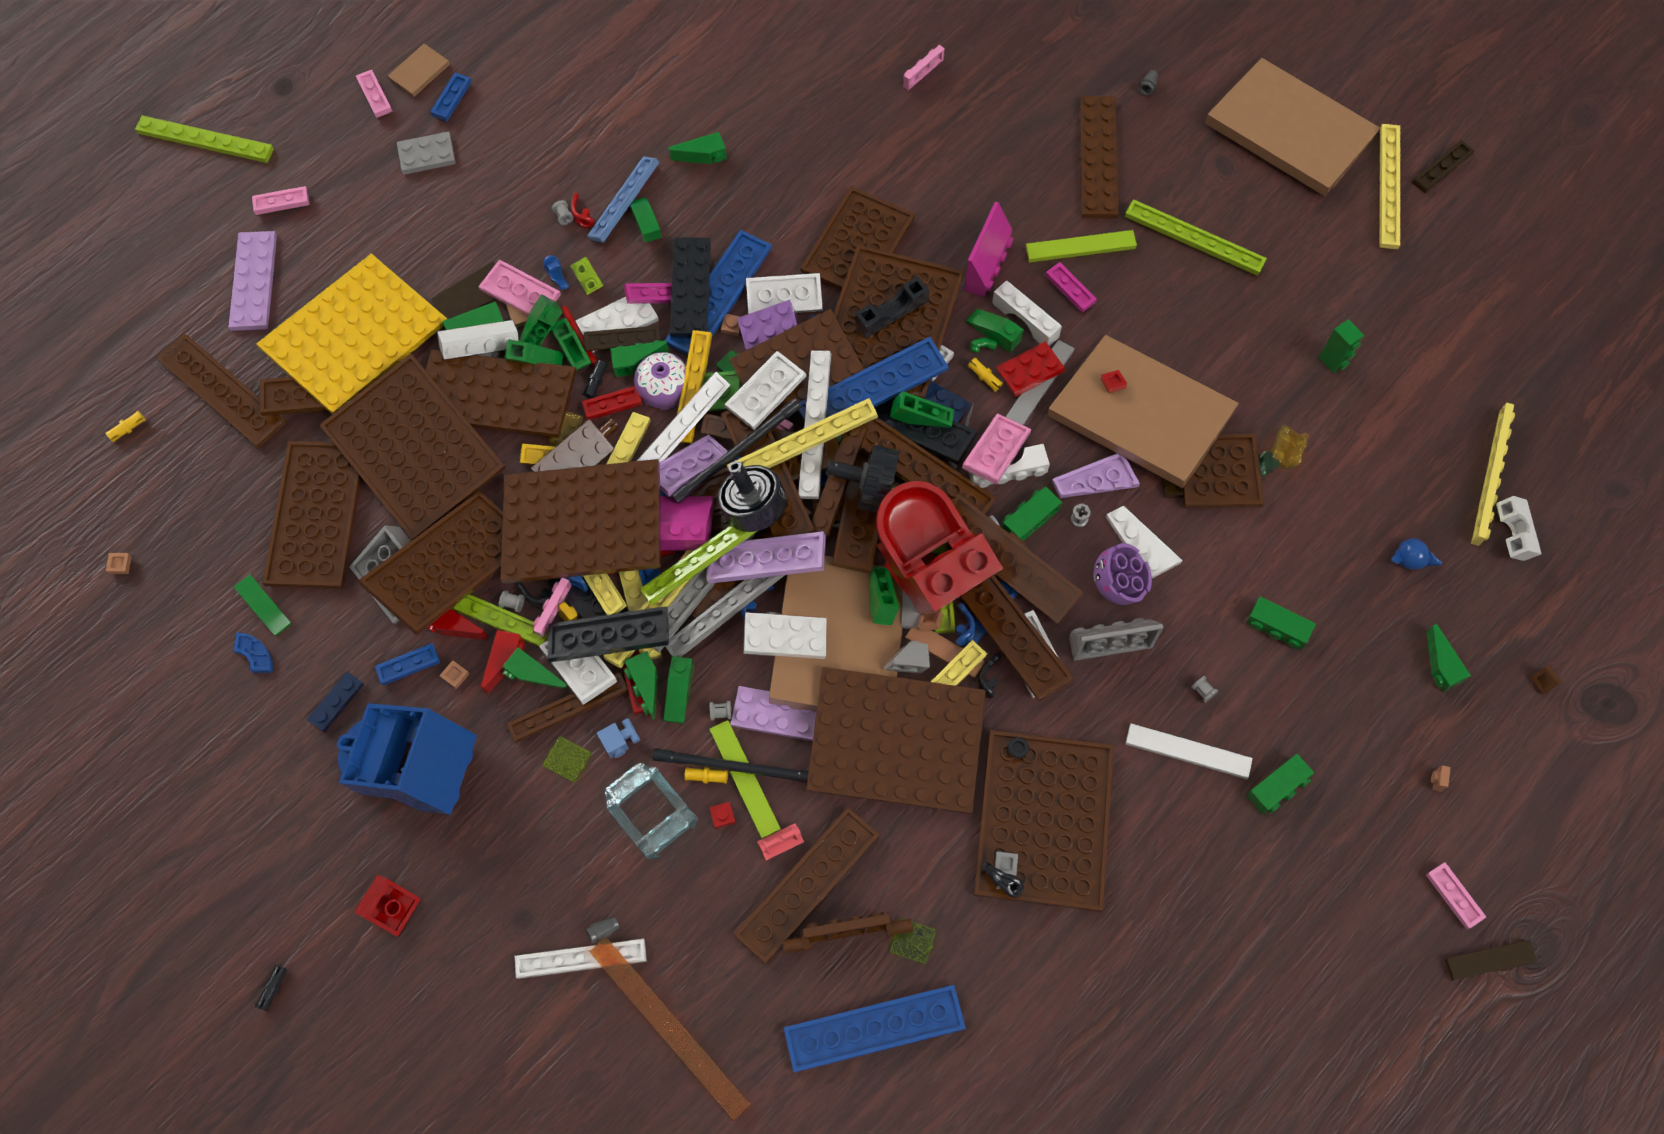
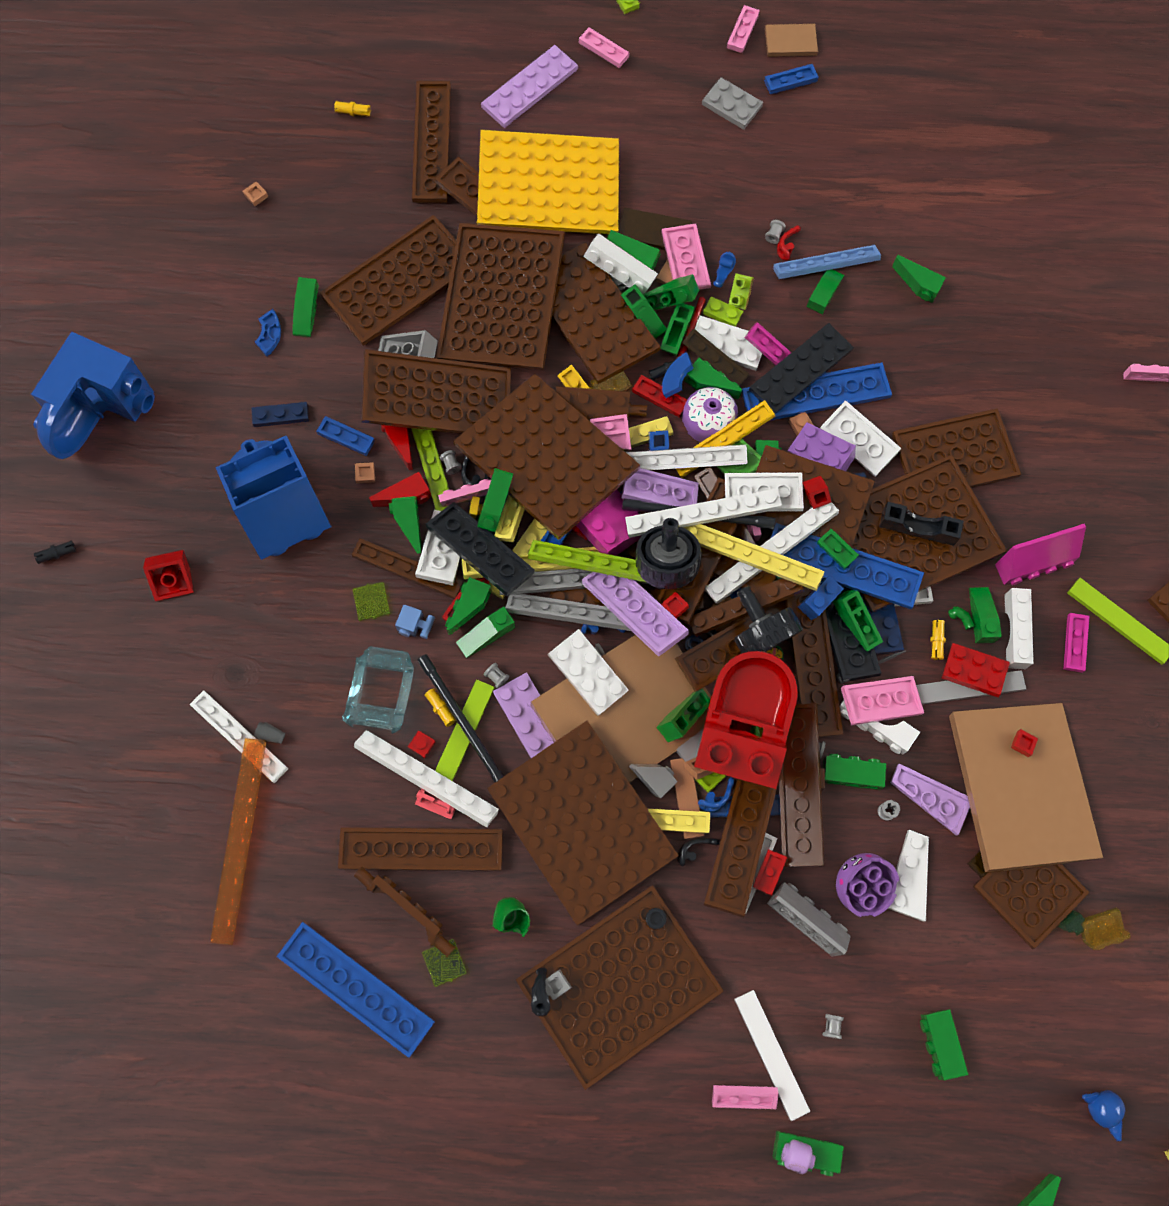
camera: 45 degrees right, 5 degrees up
(150, 834) = (80, 387): none -> blue piece
(582, 588) = (495, 500): none -> green slope
(588, 303) = (722, 312): none -> lime plate
(607, 375) = (675, 374): none -> blue tile
(608, 453) = (616, 429): none -> bright pink wing
(648, 432) = (658, 440): none -> blue brick
(741, 443) = (707, 511): none -> white plate
(753, 832) = (426, 778): none -> white plate
(793, 525) = (675, 605): none -> red plate
(802, 353) = (817, 492): none -> red brick
(830, 539) = (691, 639): none -> dark blue plate
(857, 378) = (837, 549): none -> green plate
(884, 426) = (819, 600): none -> blue brick
(923, 855) = (511, 916): none -> green piece
(1055, 635) = (770, 872): none -> red plate
(1204, 796) = (744, 1097): none -> bright pink plate
(1279, 790) = (798, 1156): none -> lavender head

